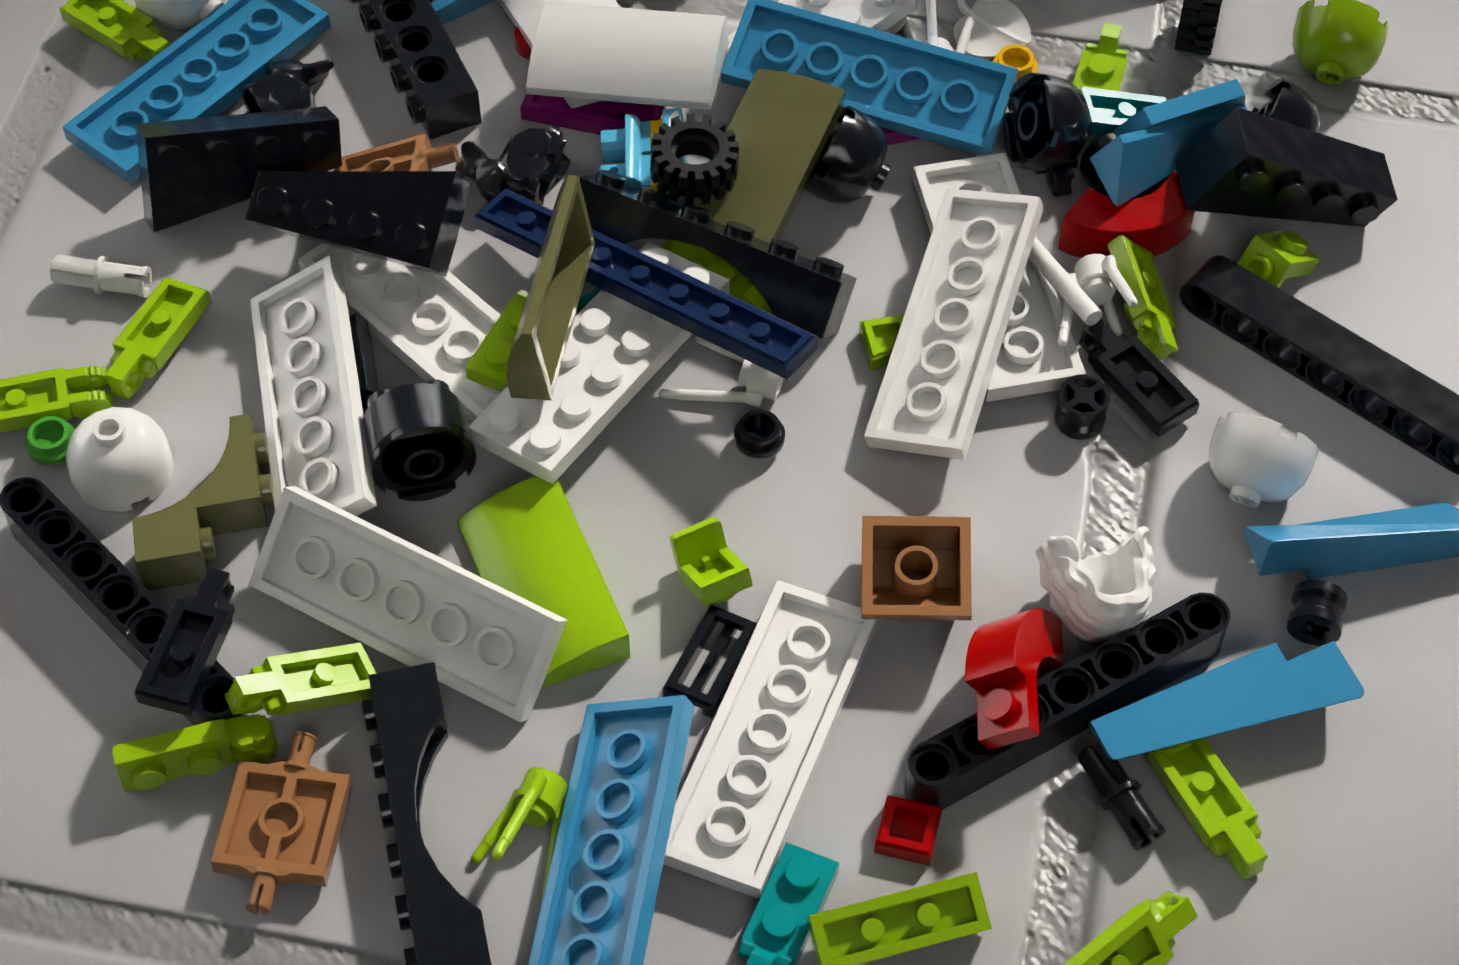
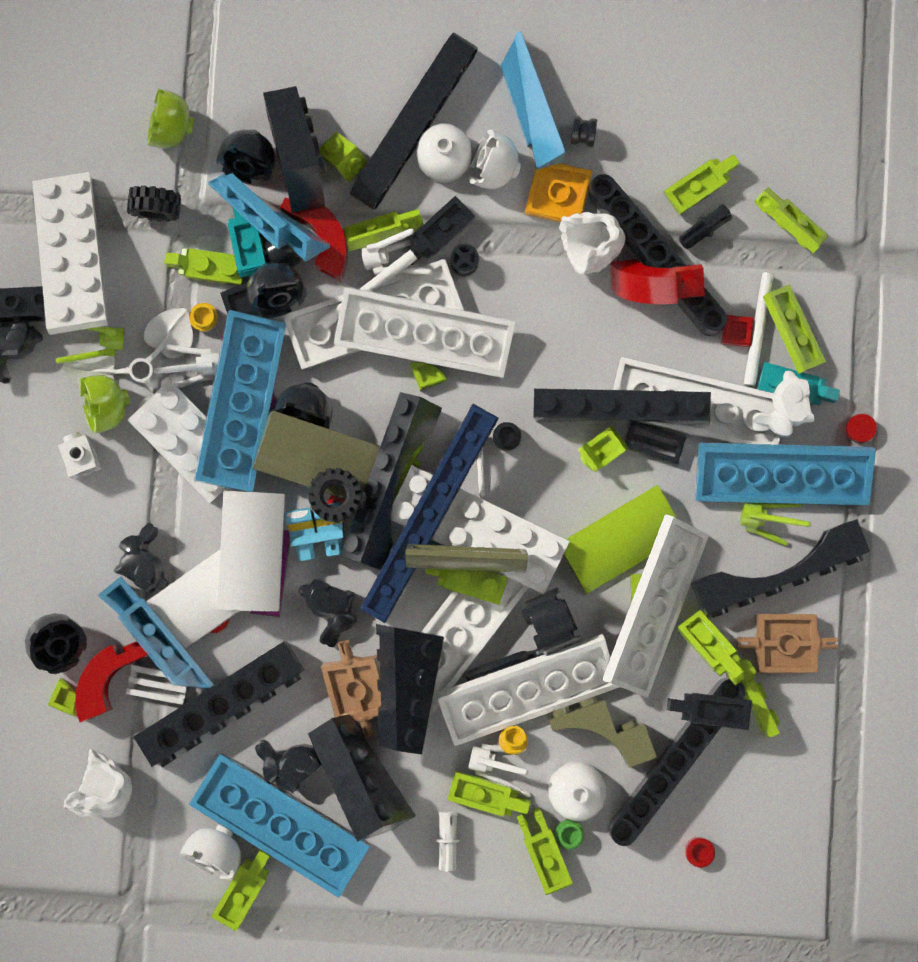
camera: 100 degrees left, 30 degrees up
(212, 336) = (484, 760): none -> white plant
(234, 378) = (513, 740): none -> yellow plate
(740, 872) = (790, 406): none -> white animal
(779, 596) = (622, 405): none -> black arch
(897, 864) = (758, 331): none -> white bar
(916, 568) = (599, 338): medium nougat slope -> none
(1202, 558) = (558, 192): none -> light orange tile
(1230, 698) = (648, 175): dark azure wedge -> none
(1284, 389) = (443, 153): none -> white cylinder

